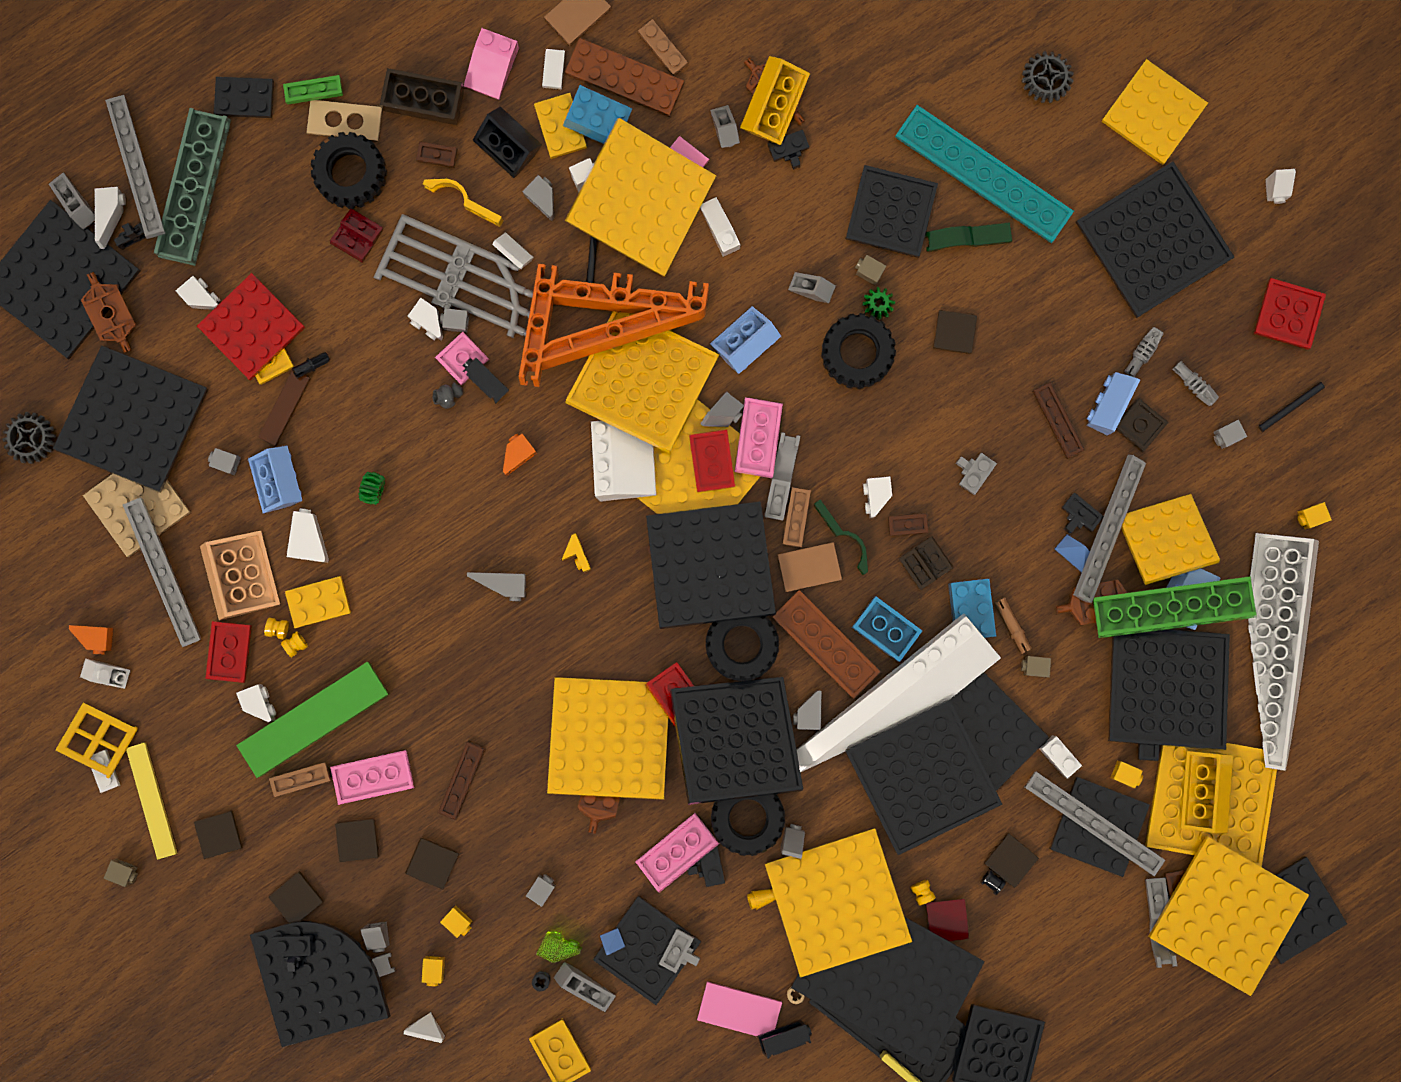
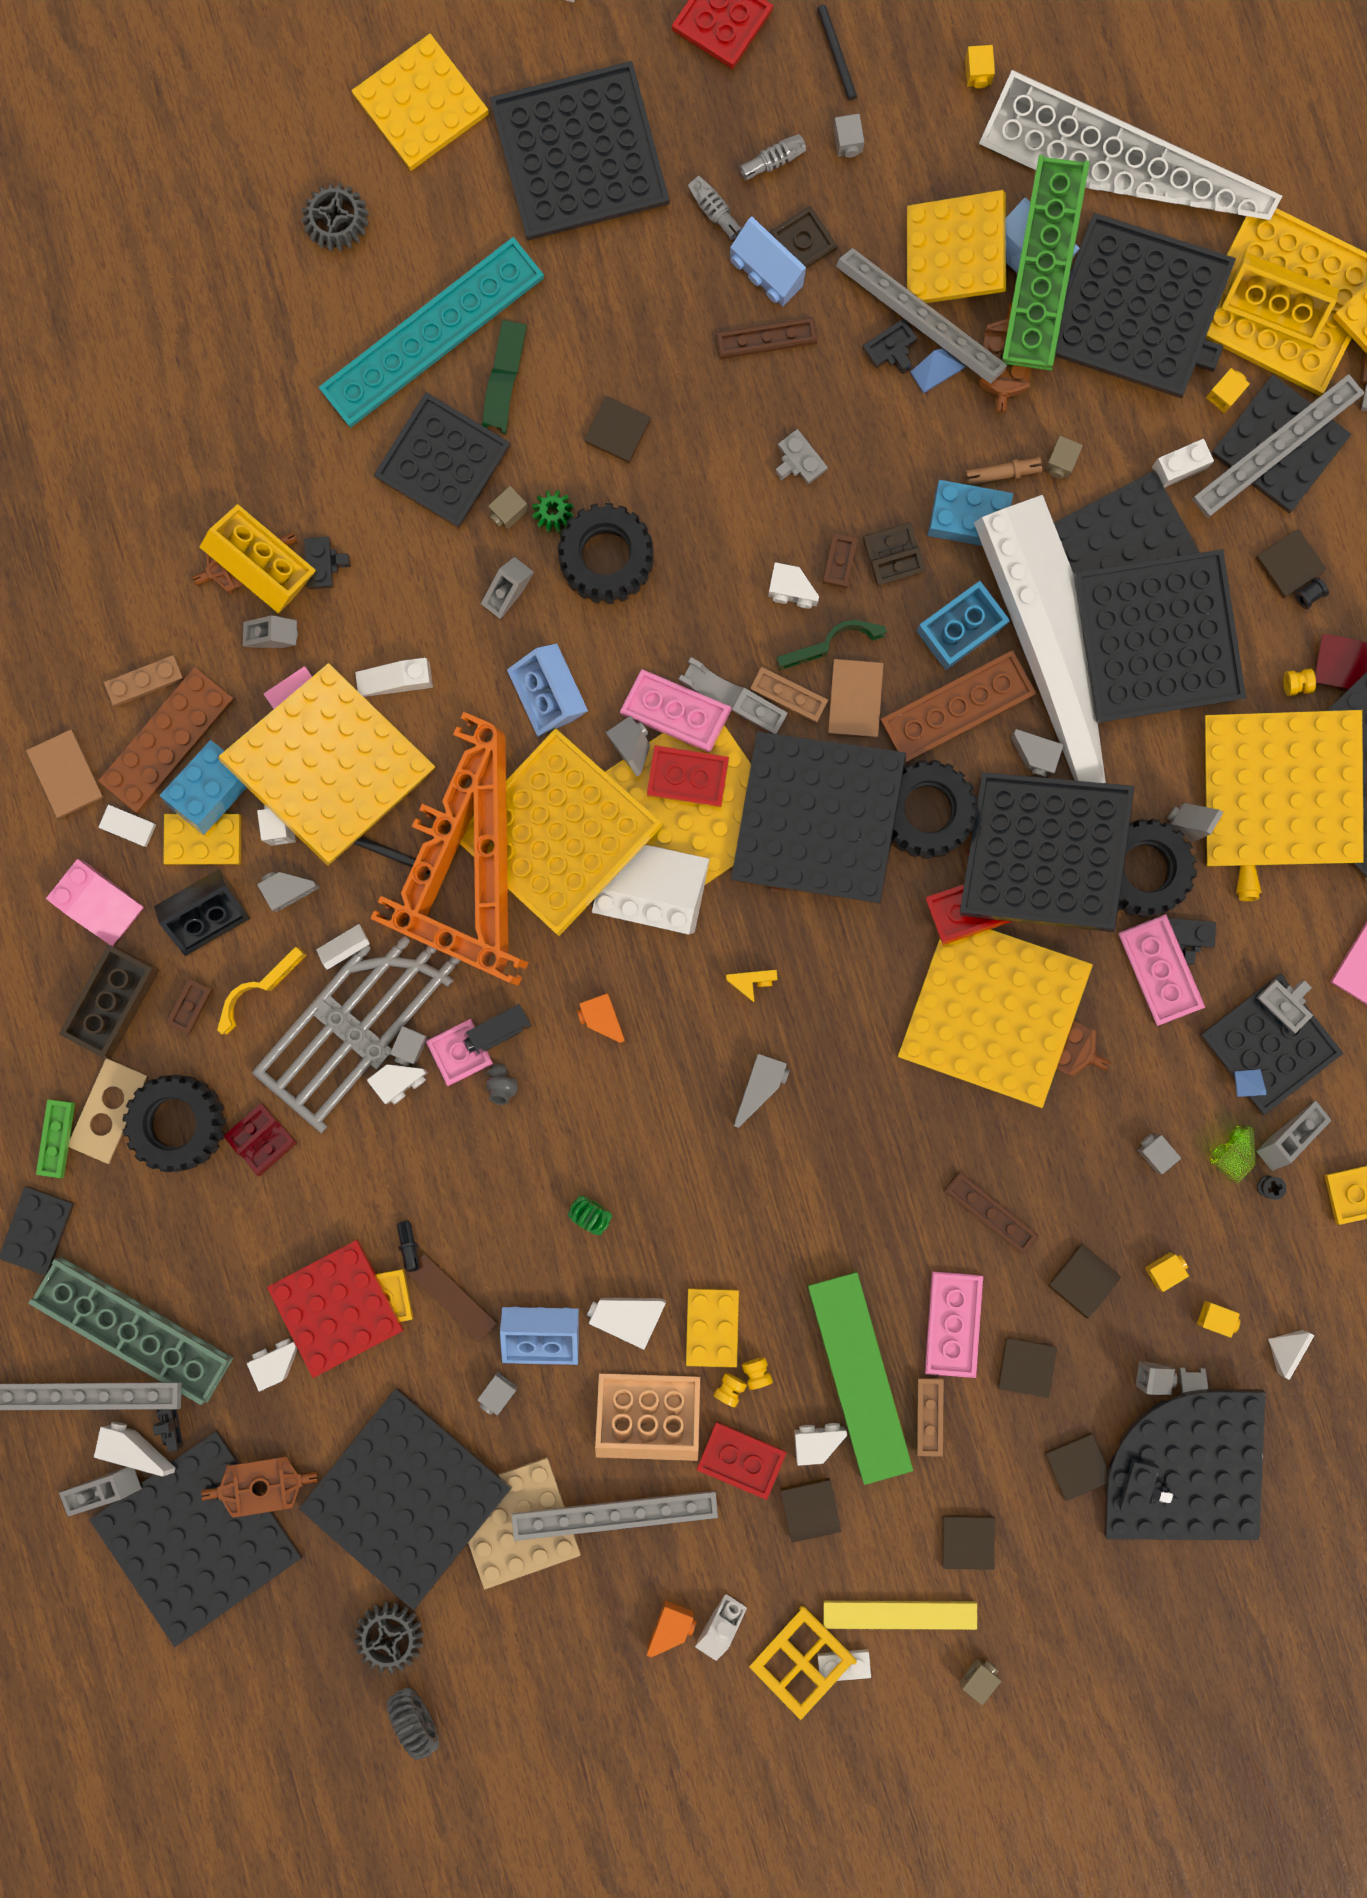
camera: 75 degrees left, 0 degrees up
(207, 713) = (810, 1510): none -> dark brown slope

